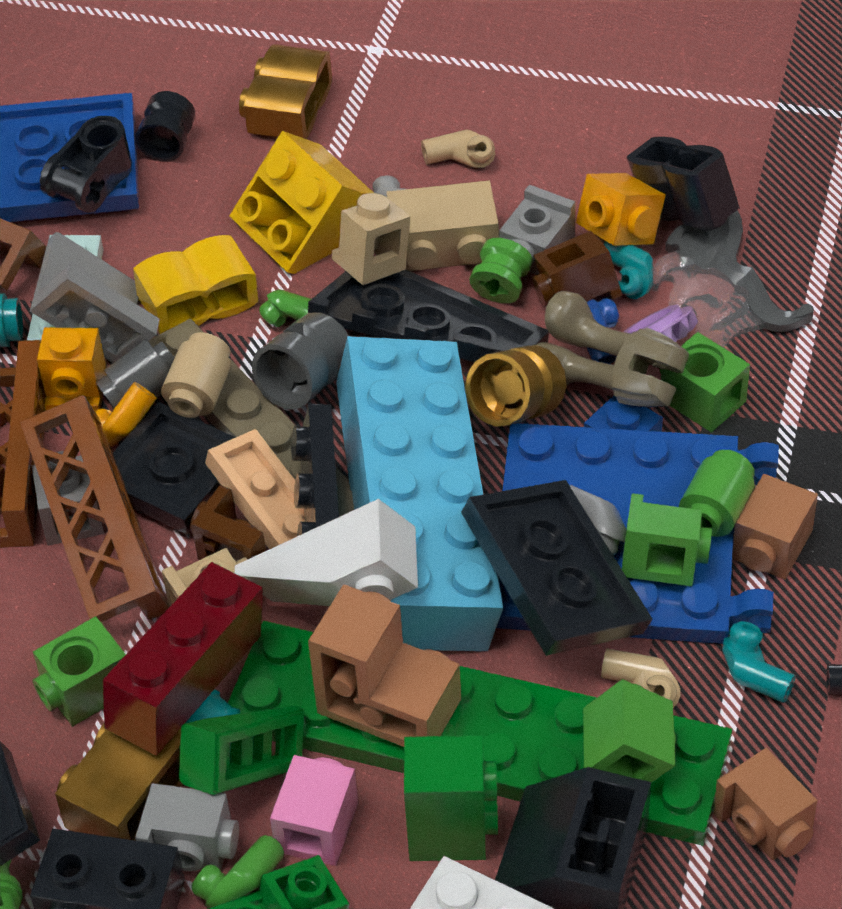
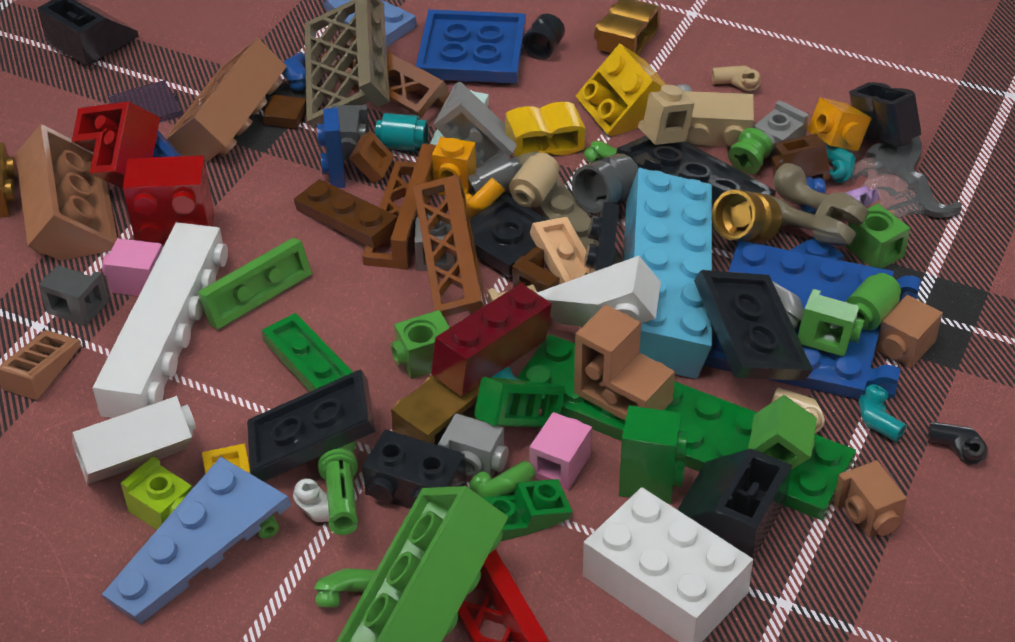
camera: 10 degrees right, 5 degrees down
(92, 164) = (489, 48): black piece -> none

